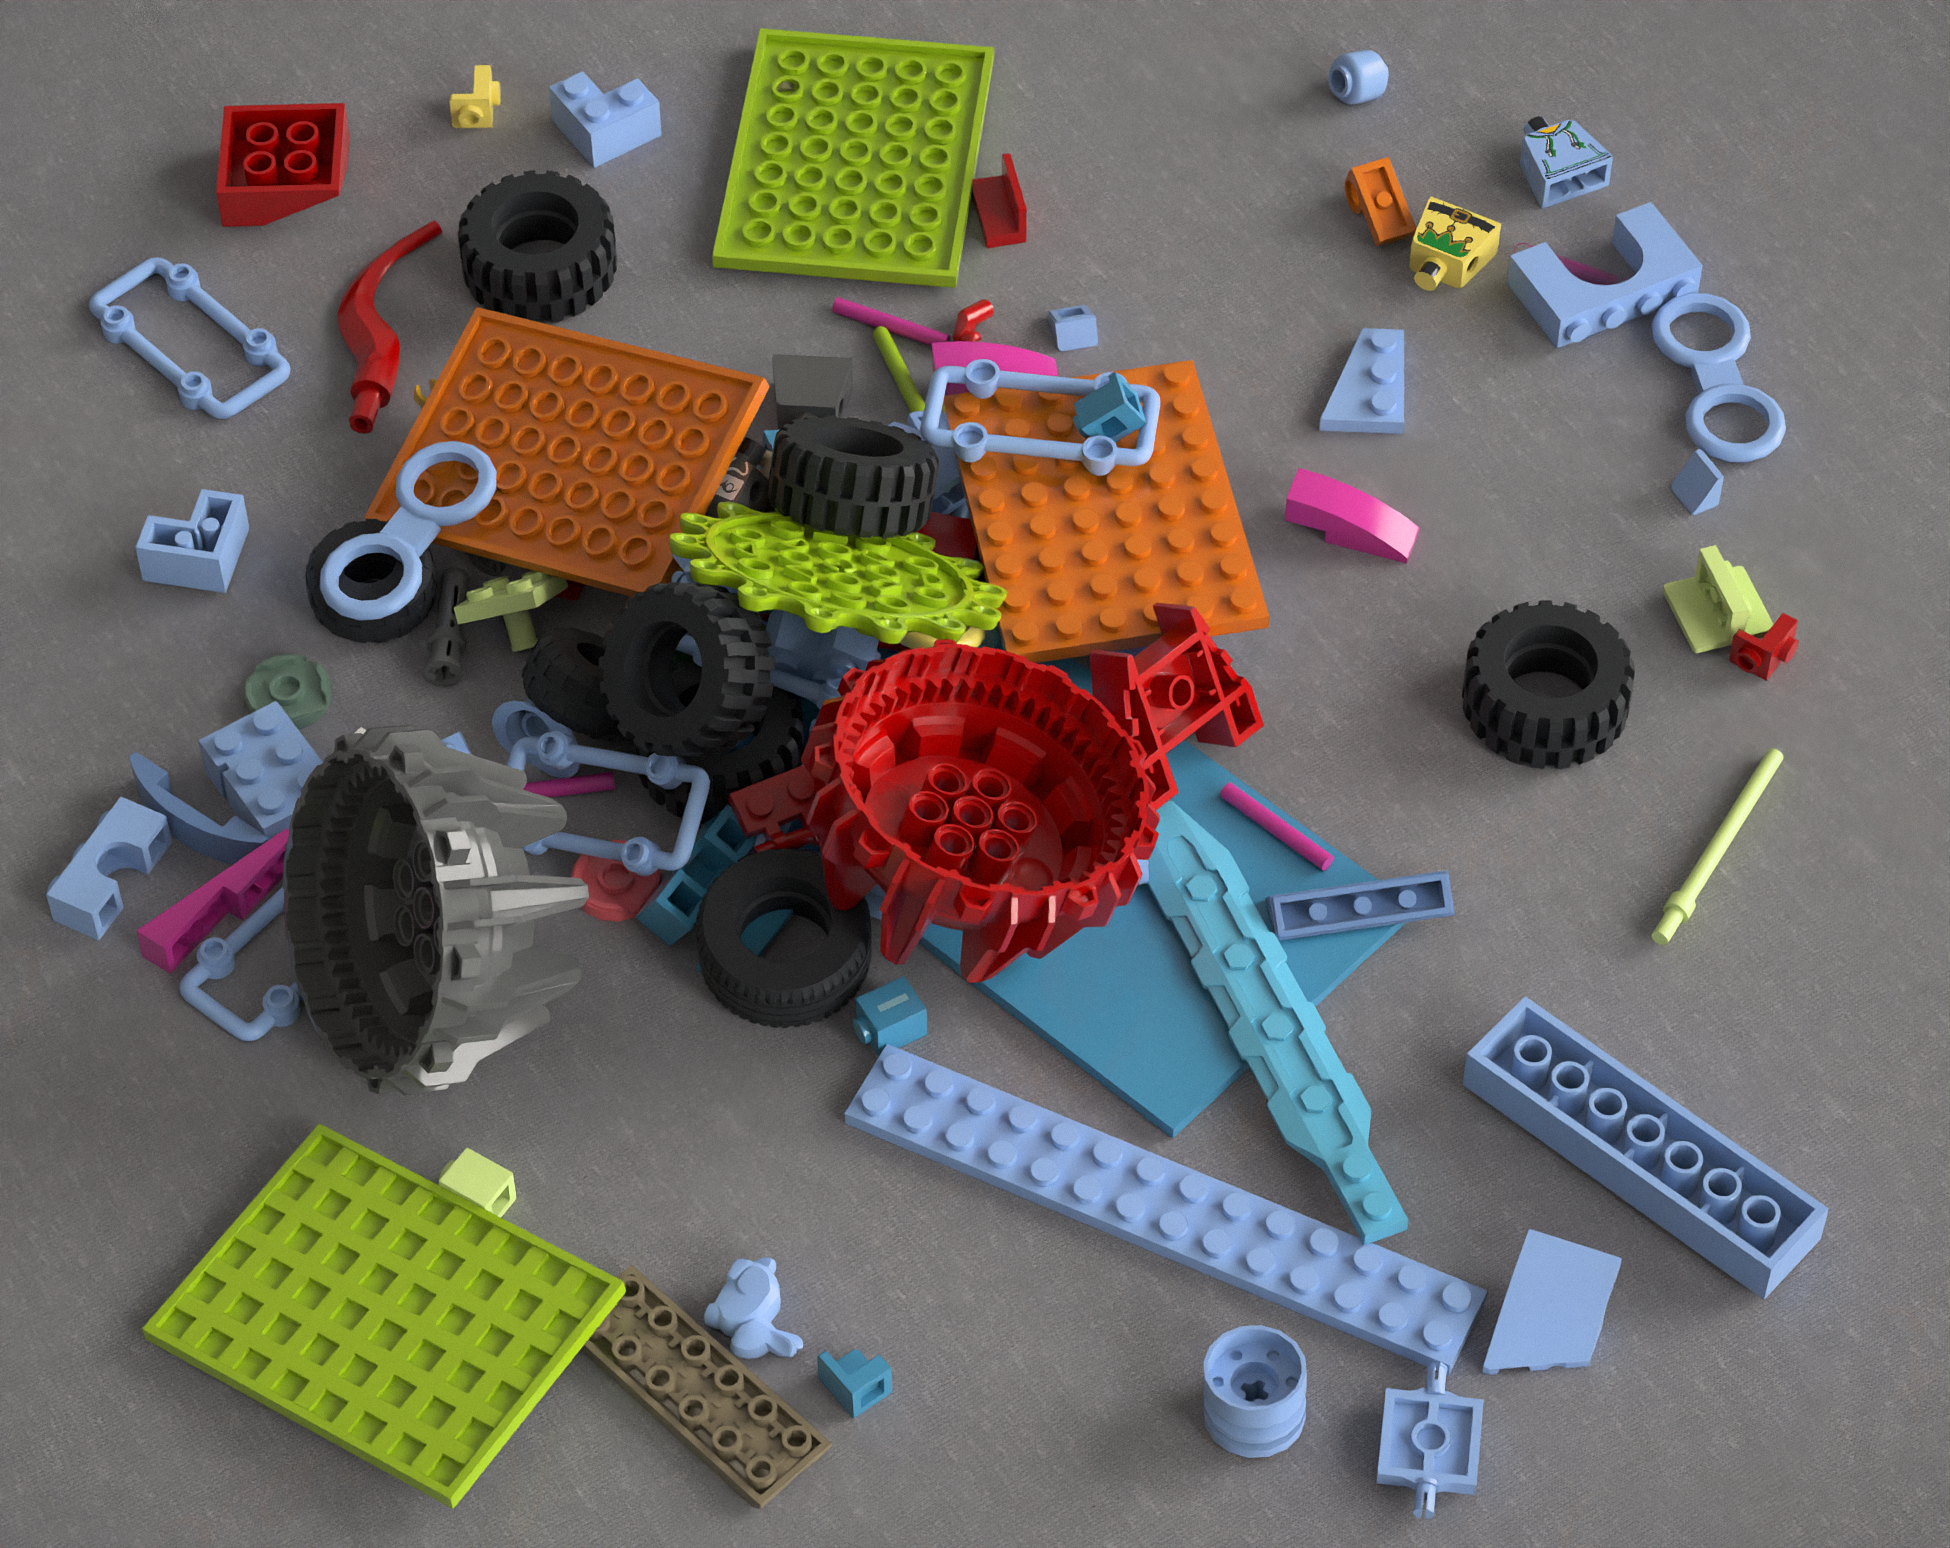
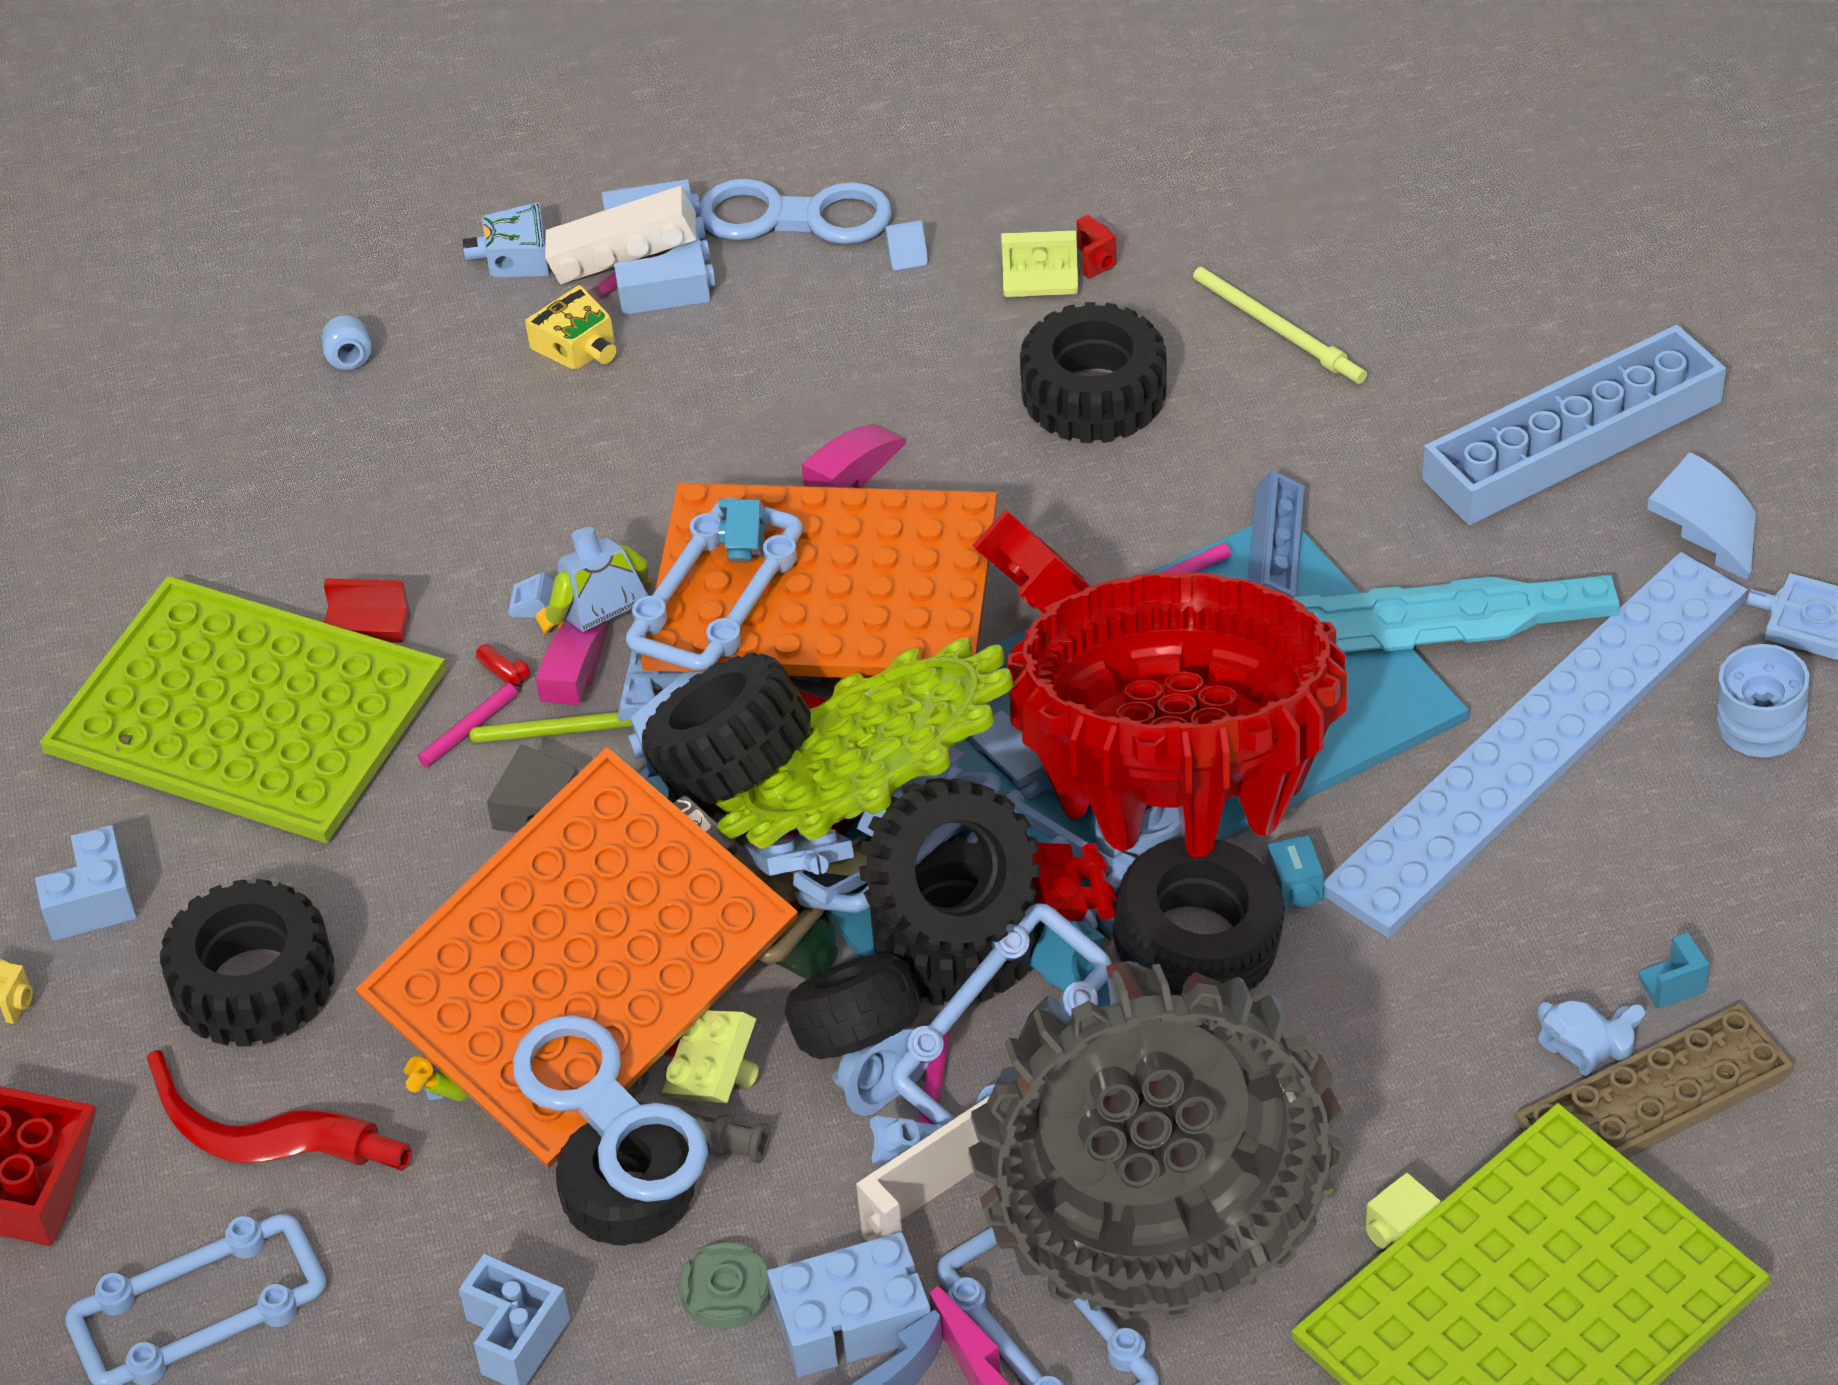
camera: 70 degrees left, 5 degrees down
(1068, 342) = (594, 583): none -> light blue torso
(1370, 386) = (705, 418): light blue wing -> none
(1377, 195) = (493, 356): orange plate -> none
(1587, 234) = (620, 234): none -> white brick

